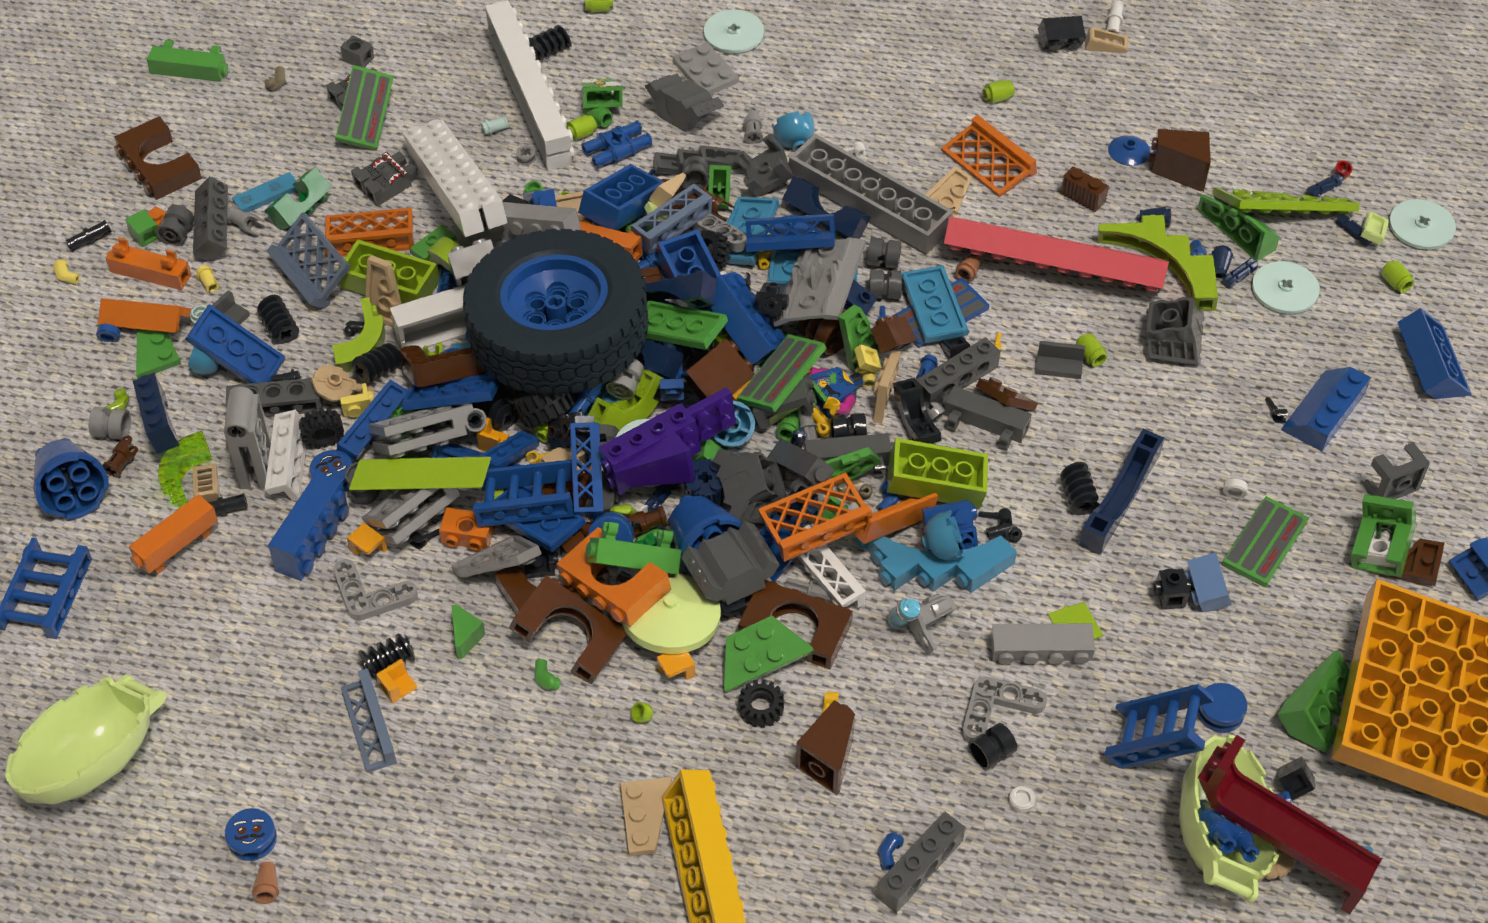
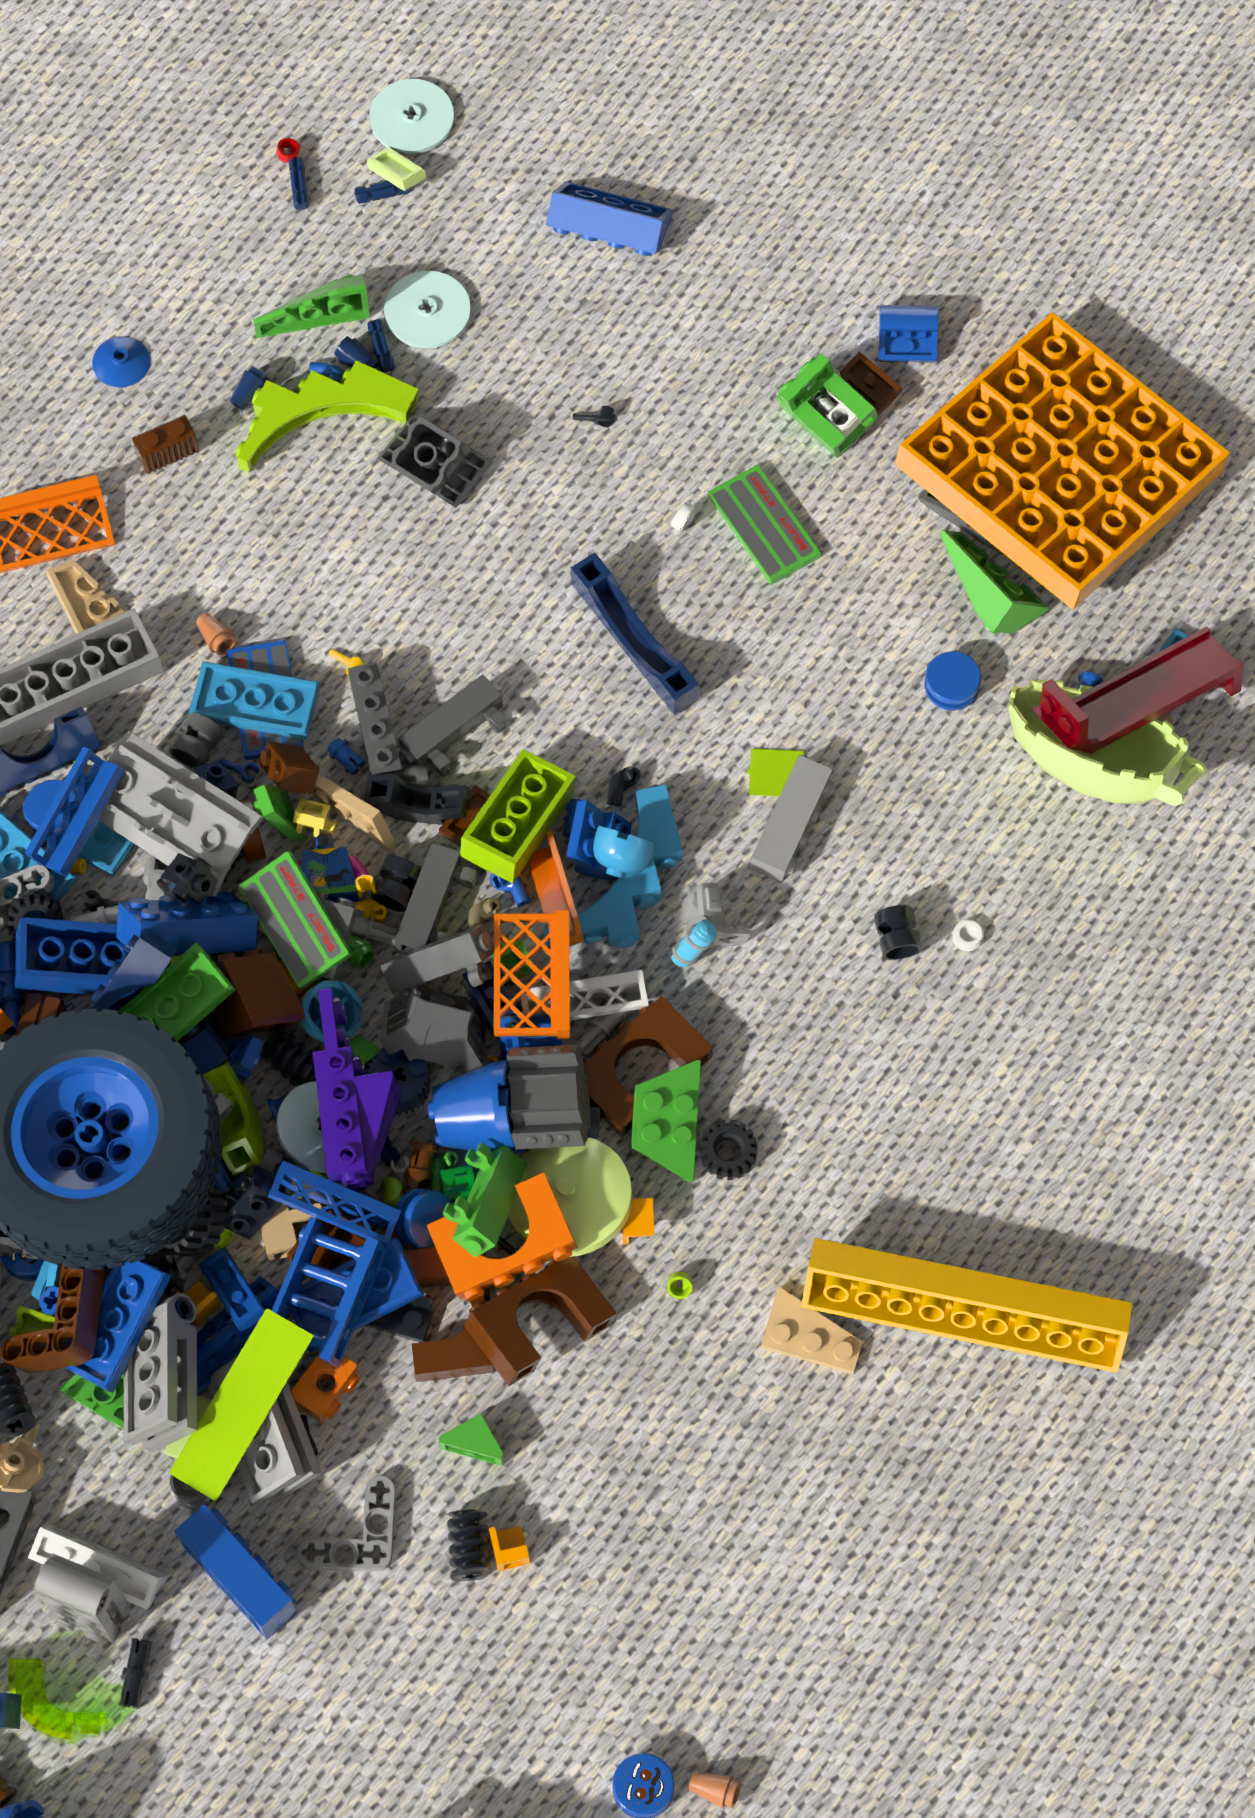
camera: 65 degrees left, 15 degrees up
(173, 535) = (168, 1745): orange brick -> none
(210, 495) = (111, 1690): tan slope -> none
(331, 427) = (81, 1505): black tyre -> none
(332, 464) = (150, 1517): blue head -> none
(355, 405) = (58, 1450): light yellow bracket -> none
(366, 540) = (286, 1510): light orange panel -> none
(378, 720) = (549, 1586): sand blue fence -> none
(380, 409) = (98, 1439): blue fence -> none
(504, 554) = (391, 1359): light grey plate -> none
(534, 455) = (250, 1256): yellow hand -> none
(544, 678) = (580, 1375): bright green arm -> none
(798, 437) = (389, 947): dark blue axle -> none
(826, 747) = (829, 1099): reddish brown slope -> none
(829, 697) = (755, 1075): yellow hand -> none
(854, 463) = (458, 914): bright green wing -> none
(884, 253) = (147, 715): dark grey wheel -> none
(887, 847) = (966, 1098): blue arm -> none
(920, 862) = (1003, 1072): dark grey brick -> none
(954, 345) = (329, 708): black tile -> none
(987, 700) = (833, 910): light grey beam -> none
(1004, 515) = (599, 774): black hand -> none
(1006, 394) = (433, 689): reddish brown wing -> none
(1056, 252) = (257, 527): coral brick -> none
(1060, 359) = (412, 606): dark grey panel -> none
(1079, 488) = (606, 676): black piece -> none
(1094, 350) = (413, 563): lime brick -> none
(1169, 742) = (997, 757): blue fence -> none
(1172, 588) = (785, 650): black brick -> none
(1181, 157) = (184, 310): reddish brown slope -> none
(1208, 583) = (797, 610): medium blue brick -> none
(1227, 833) = (1129, 753): blue pin -> none
(1284, 203) = (302, 250): lime wing -> none
(1296, 778) = (1068, 654): black panel -> none
(1327, 406) = (620, 362): blue slope -> none
(1397, 276) = (477, 186): lime brick -> none
(1399, 480) = (756, 346): dark grey panel -> none

